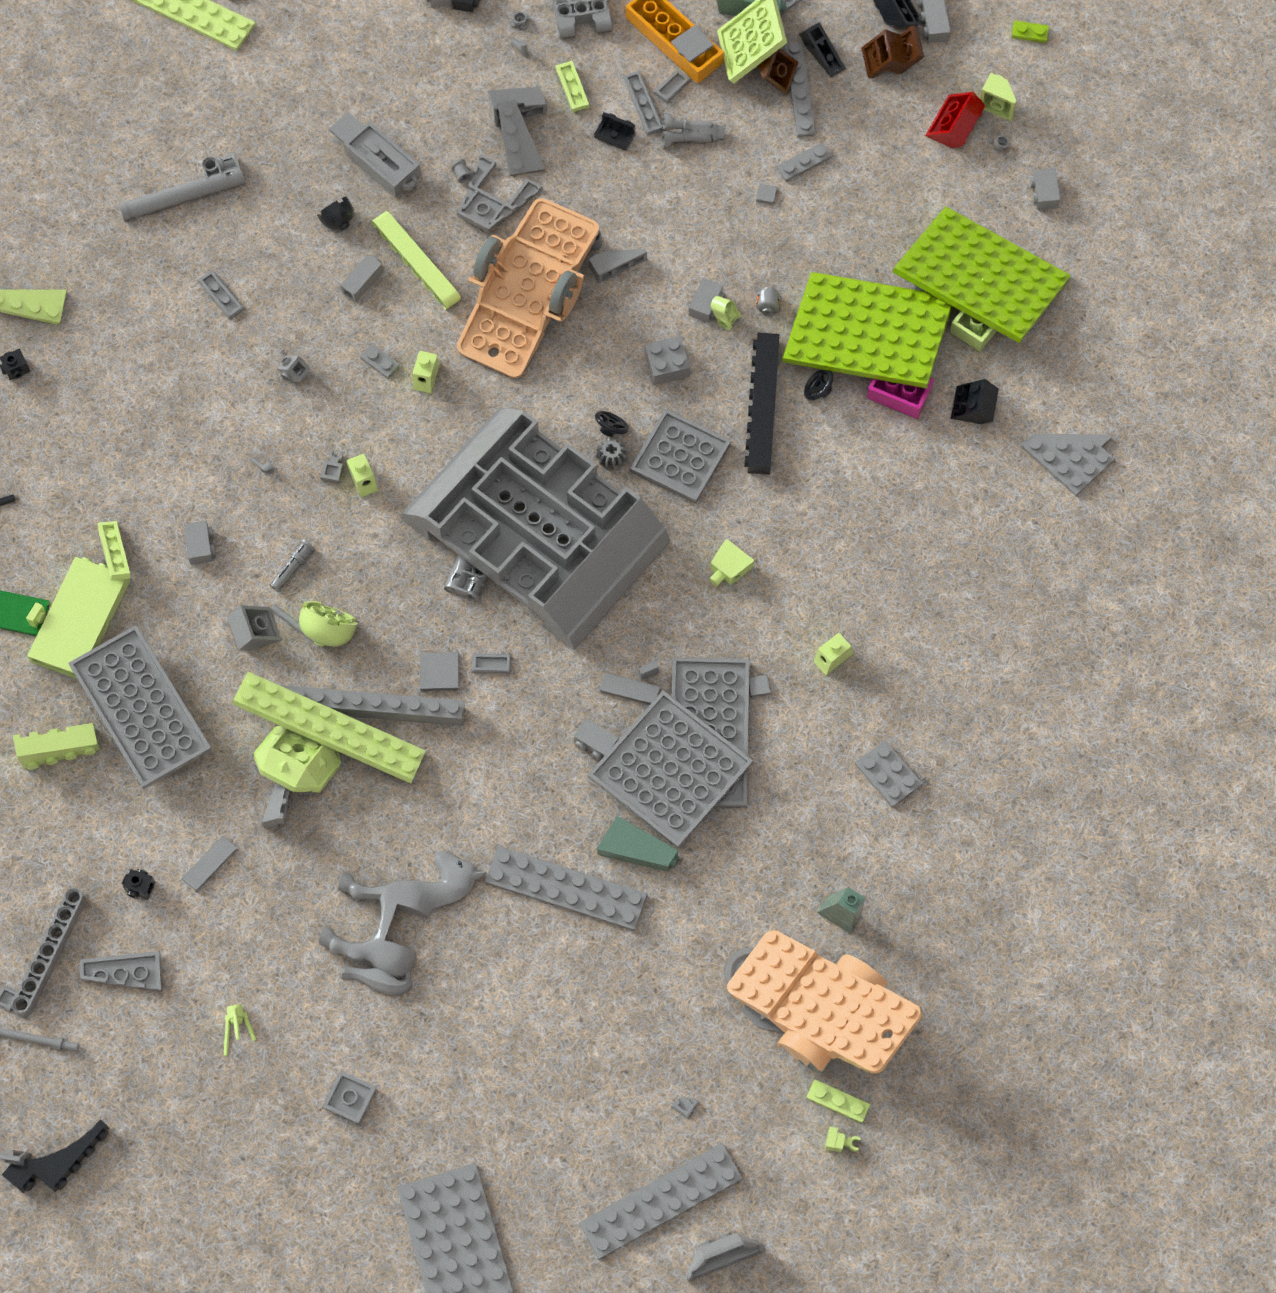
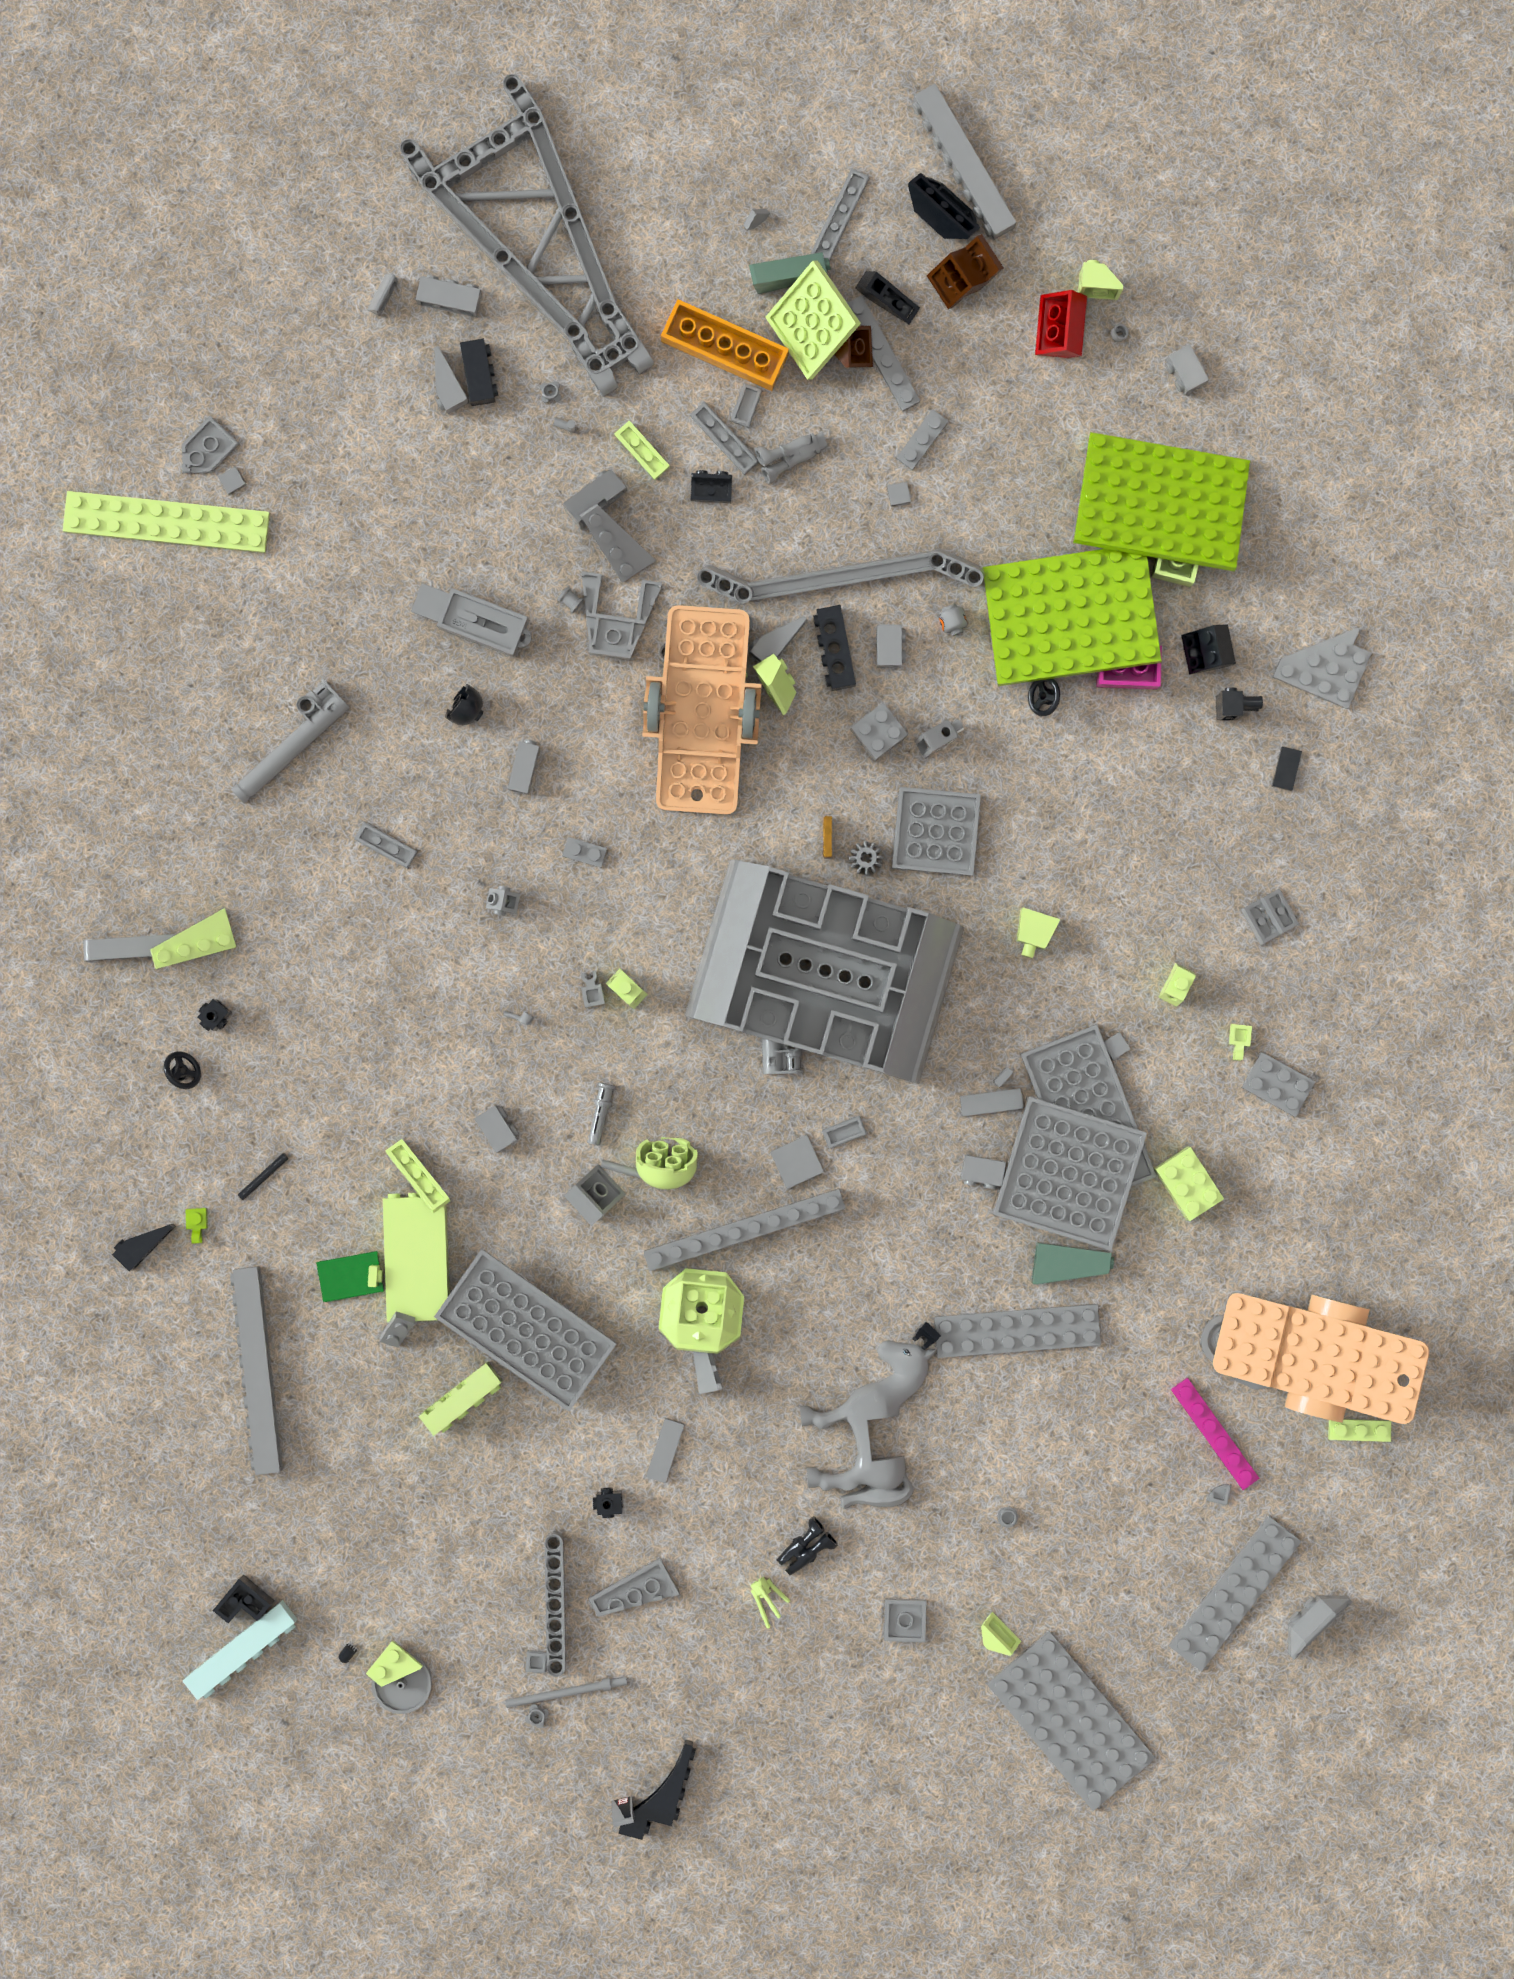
camera: 25 degrees left, 20 degrees up
(32, 666) = (397, 1329): none -> light grey plate
(287, 1001) = (799, 1547): none -> black piece
(329, 727) = (721, 1274): yellowish green plate -> none
(416, 259) = (570, 723): yellowish green beam -> none
(426, 1147) = (998, 1636): none -> yellowish green slope
(427, 368) = (639, 848): yellowish green torso -> none
(484, 1045) = (1007, 1517): none -> light grey plate
(485, 856) = (927, 1333): none -> black tile
(586, 424) = (827, 837): none -> pearl gold tile
(598, 287) = (776, 682): none -> yellowish green slope
(611, 423) = (852, 828): black piece -> none
(663, 259) = (834, 616): none -> black brick
(690, 233) = (839, 575): none -> light grey piece
(692, 43) = (752, 353): light grey piece -> none
(704, 1050) = (1214, 1433): none -> dark pink plate
(714, 382) = (936, 740): none -> light grey torso
(725, 312) = (915, 653): yellowish green piece -> none
(763, 403) = (996, 738): black brick -> none
(772, 821) = (1188, 1183): none -> yellowish green brick
(836, 1141) = (1375, 1470): yellowish green piece -> none
(843, 908) = (1294, 1249): sand green slope -> none
(870, 720) = (1239, 1036): none -> yellowish green plate
(948, 633) = (1278, 913): none -> light grey slope
(978, 449) = (1232, 703): none -> black brick
(1003, 522) = (1286, 768): none -> black tile
(1030, 31) = (1097, 182): lime plate -> none

